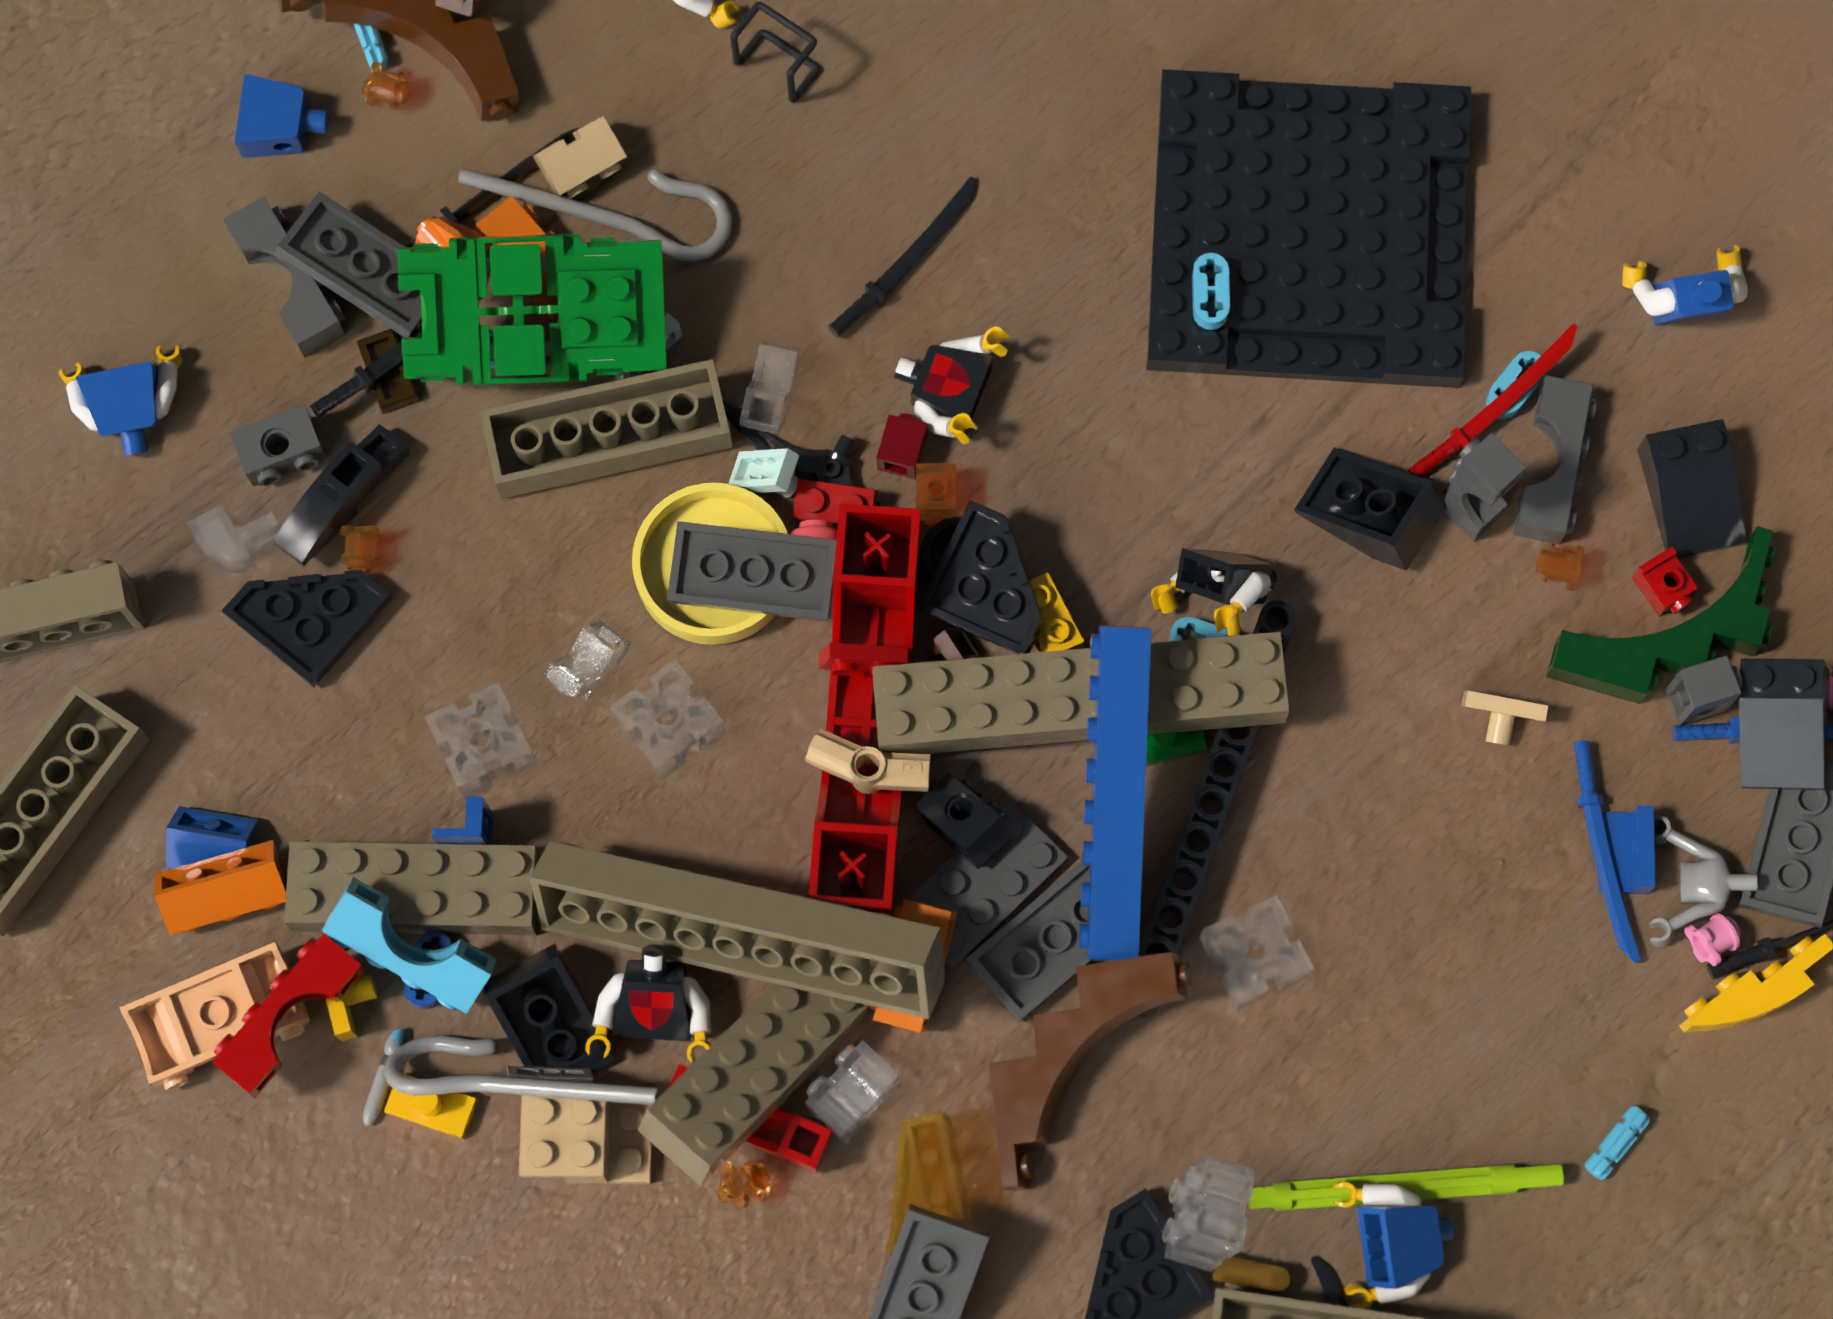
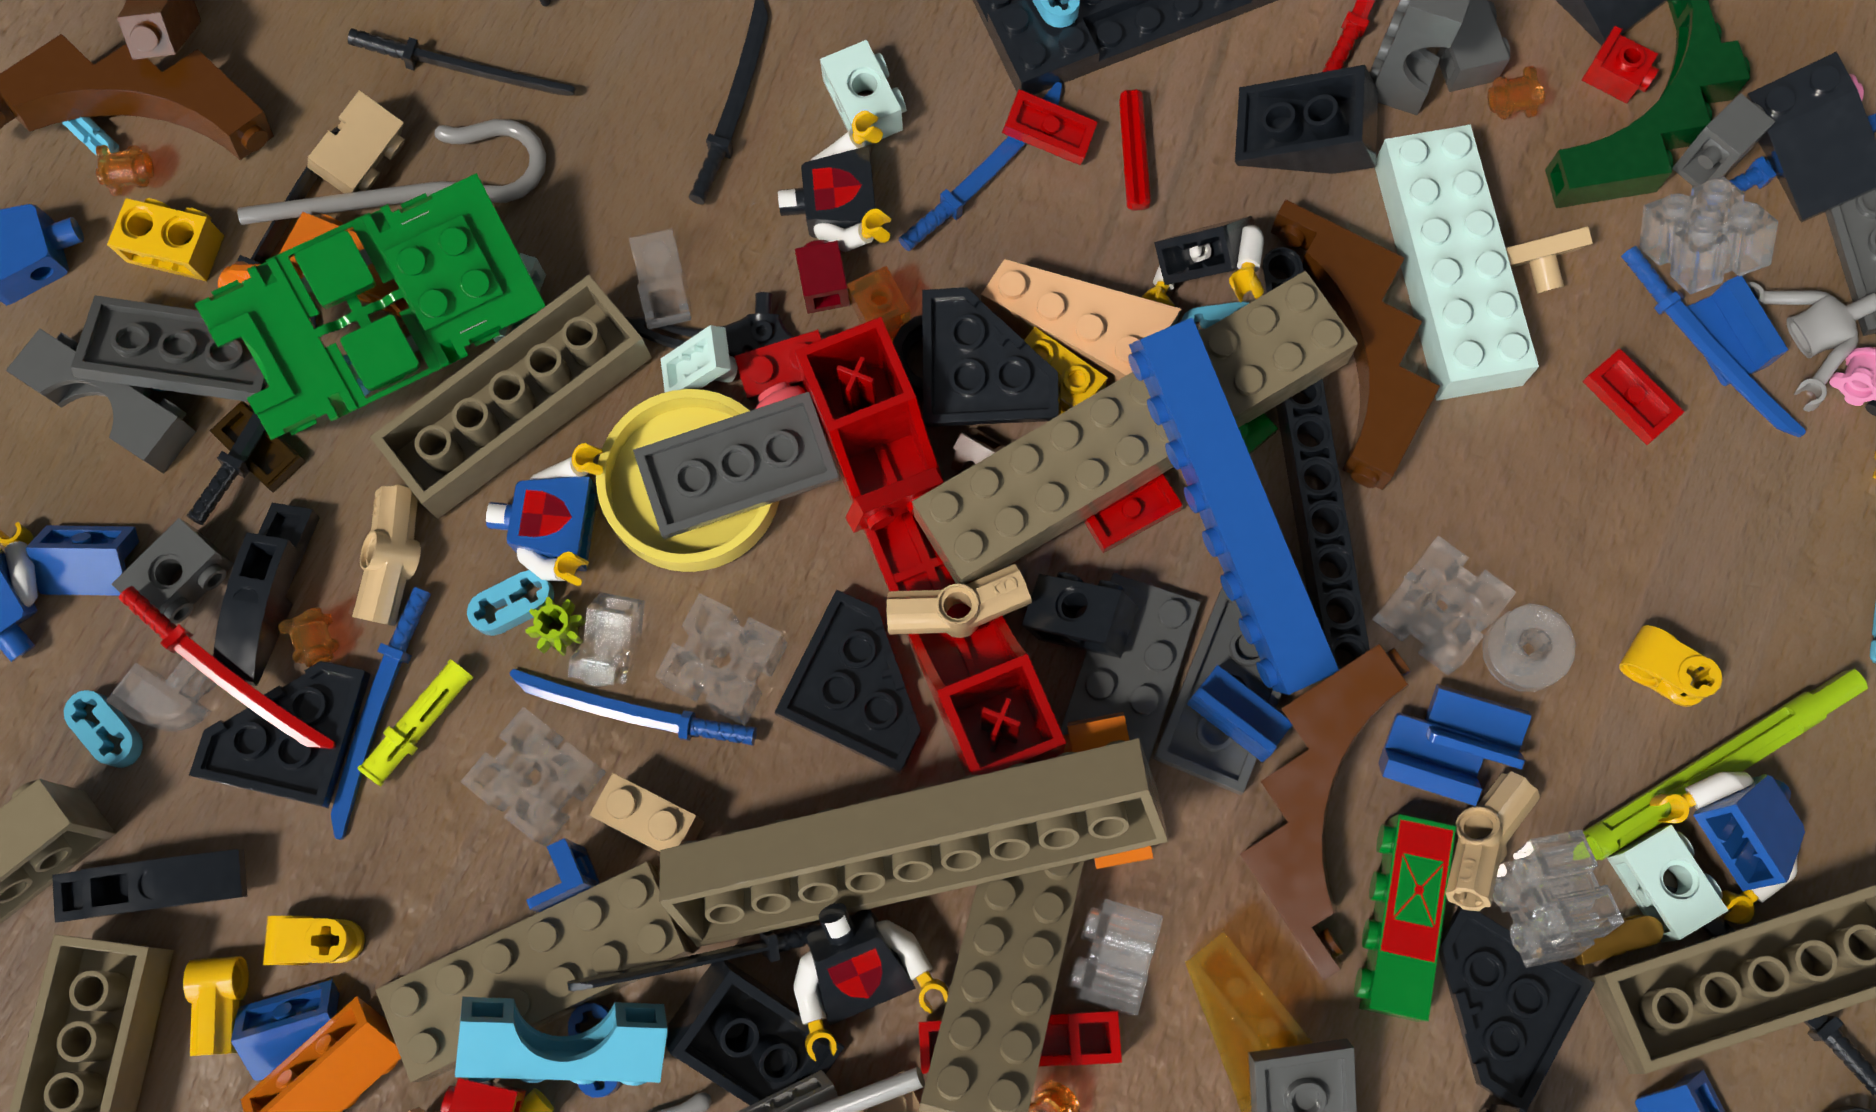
camera: 25 degrees left, 0 degrees up
(155, 681) = (149, 885): none -> black slope
(168, 785) = (214, 992): none -> yellow piece
(180, 540) = (95, 736): none -> medium azure beam
(214, 398) = (80, 558): none -> blue panel
(251, 779) = (307, 940): none -> yellow piece
(261, 502) = (179, 640): none -> red sword
(388, 168) = (164, 244): none -> yellow brick
(409, 653) = (414, 723): none -> neon yellow pin
(417, 592) = (378, 696): none -> blue sword
(450, 510) = (388, 555): none -> tan piece
(528, 603) = (505, 594): none -> medium azure beam
(546, 638) = (557, 614): none -> lime gear
(550, 810) = (644, 815): none -> tan brick
(591, 542) = (552, 517): none -> torso
(597, 955) = (769, 944): none -> black sword
(615, 756) = (684, 725): none -> blue sword
(662, 92) = (412, 54): none -> black sword
(760, 790) = (853, 687): none -> black plate
(1016, 283) = (860, 70): none -> light aqua brick
(1041, 433) = (952, 203): none -> blue sword
(1047, 956) = (1240, 713): none -> blue panel
(1050, 760) = (1133, 513): none -> red plate
(1087, 578) = (1077, 314): none -> light nougat wedge
(1095, 1177) = (1406, 918): none -> green brick
(1153, 407) = (1049, 127): none -> red plate
(1184, 1068) = (1430, 766): none -> blue panel
(1186, 1145) = (1478, 860): none -> tan piece
(1216, 459) = (1134, 150): none -> red axle
(1232, 1060) = (1495, 722): none -> blue panel
(1307, 1277) = (1642, 872): none -> light aqua brick
(1319, 1003) = (1548, 636): none -> clear piece
(1337, 661) = (1354, 281): none -> reddish brown arch
(1410, 1083) = (1666, 666): none -> yellow piece
(1425, 681) = (1455, 263): none -> light aqua brick
(1513, 863) = (1633, 396): none -> red plate
(1644, 760) = (1708, 234): none -> clear brick

